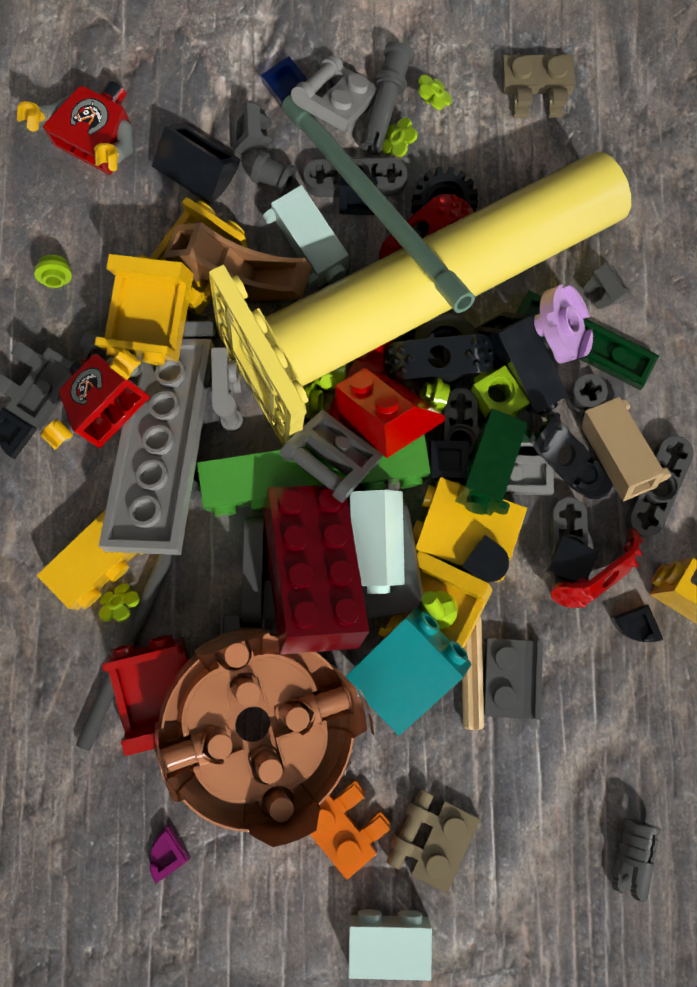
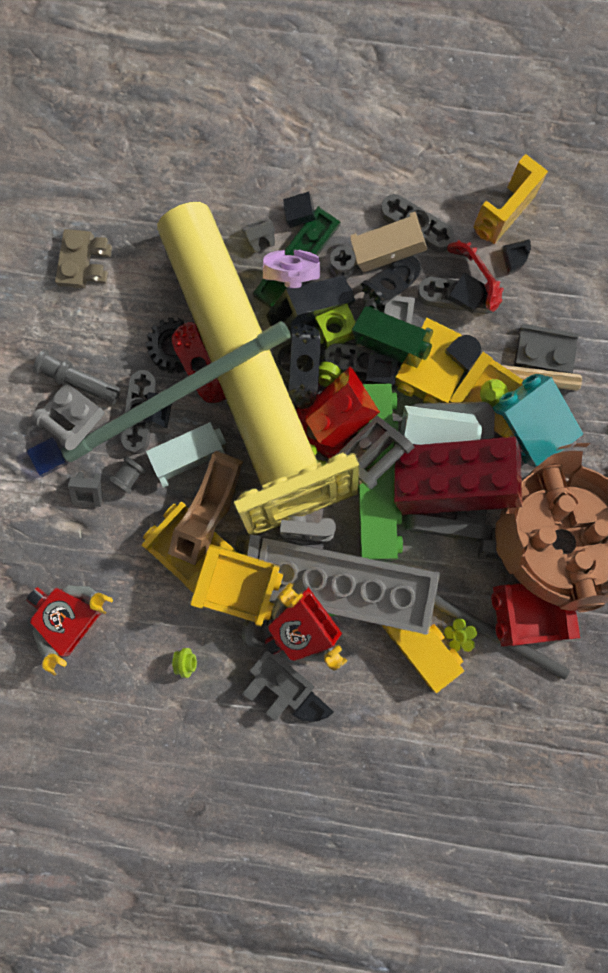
camera: 80 degrees left, 0 degrees up
(195, 161) = (107, 537): black brick -> none
(399, 137) = (111, 373): lime plant -> none
(433, 92) = (77, 340): lime plant -> none
(649, 332) = (299, 209): none -> black tile

